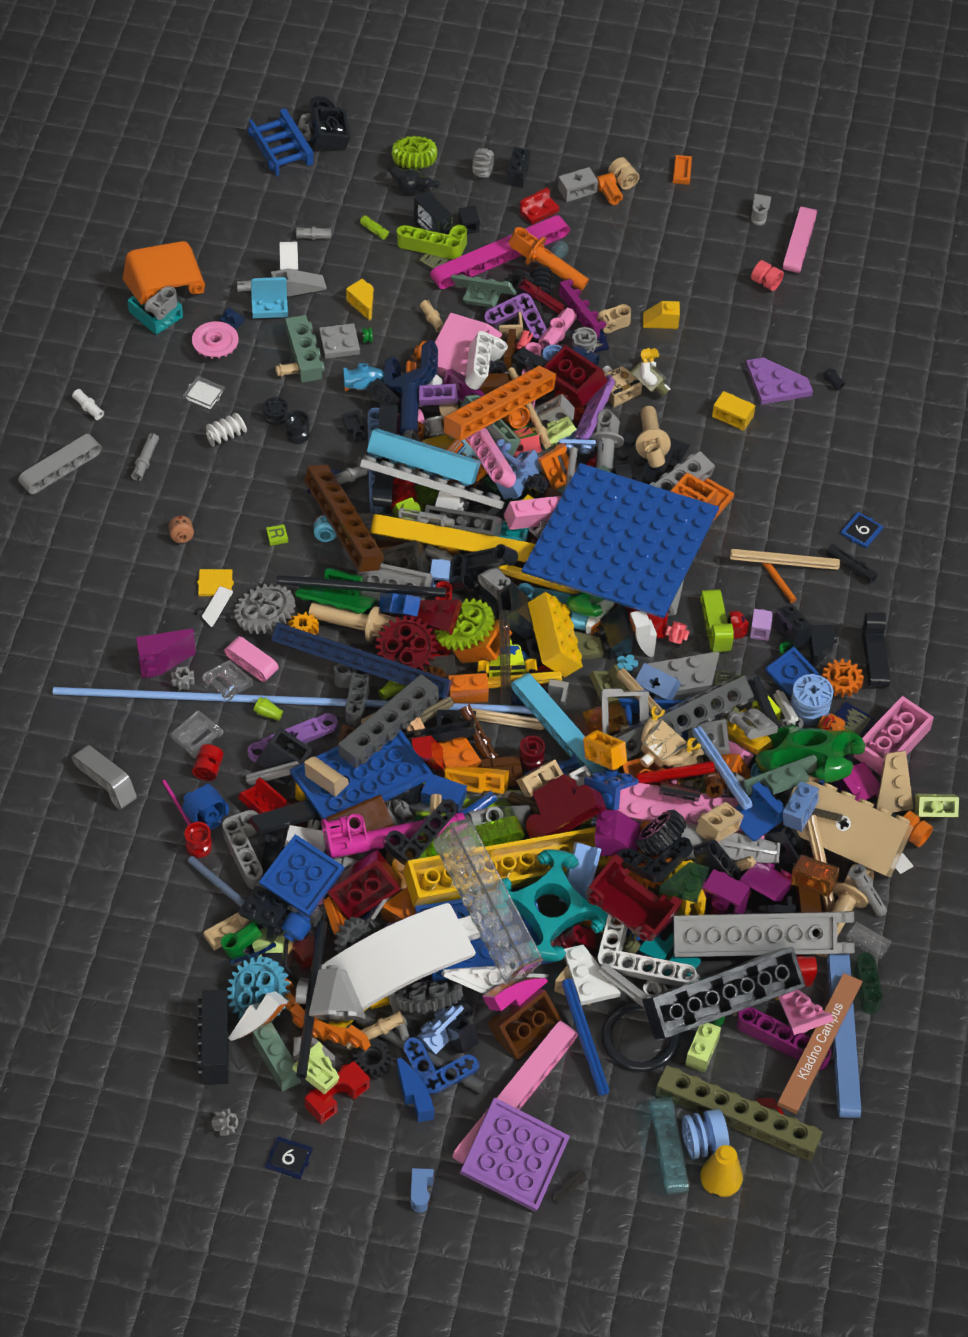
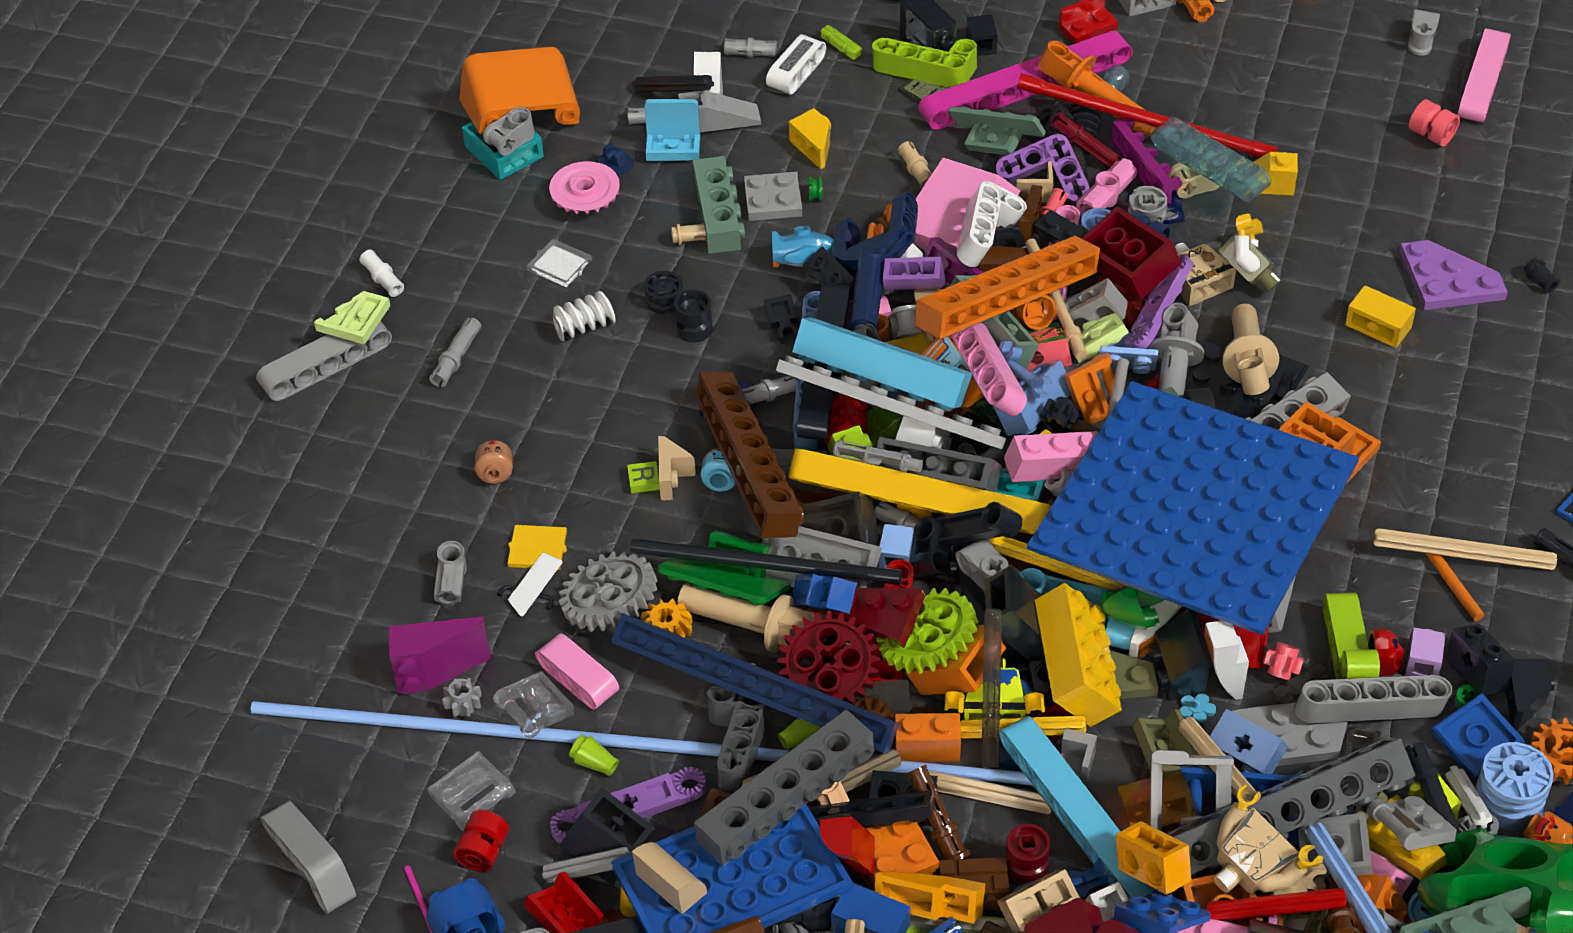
camera: 10 degrees right, 5 degrees down
(79, 438) = (356, 318): none -> yellowish green wing
(164, 602) = (450, 573): none -> light grey piece
(265, 263) = (673, 83): none -> black axle
(295, 525) = (673, 463): none -> tan slope
(346, 245) = (796, 64): none -> white beam
(579, 278) = (1040, 86): none -> red piece
(624, 307) = (1211, 159): none -> clear light blue beam
(730, 652) = (1372, 698): none -> light grey beam

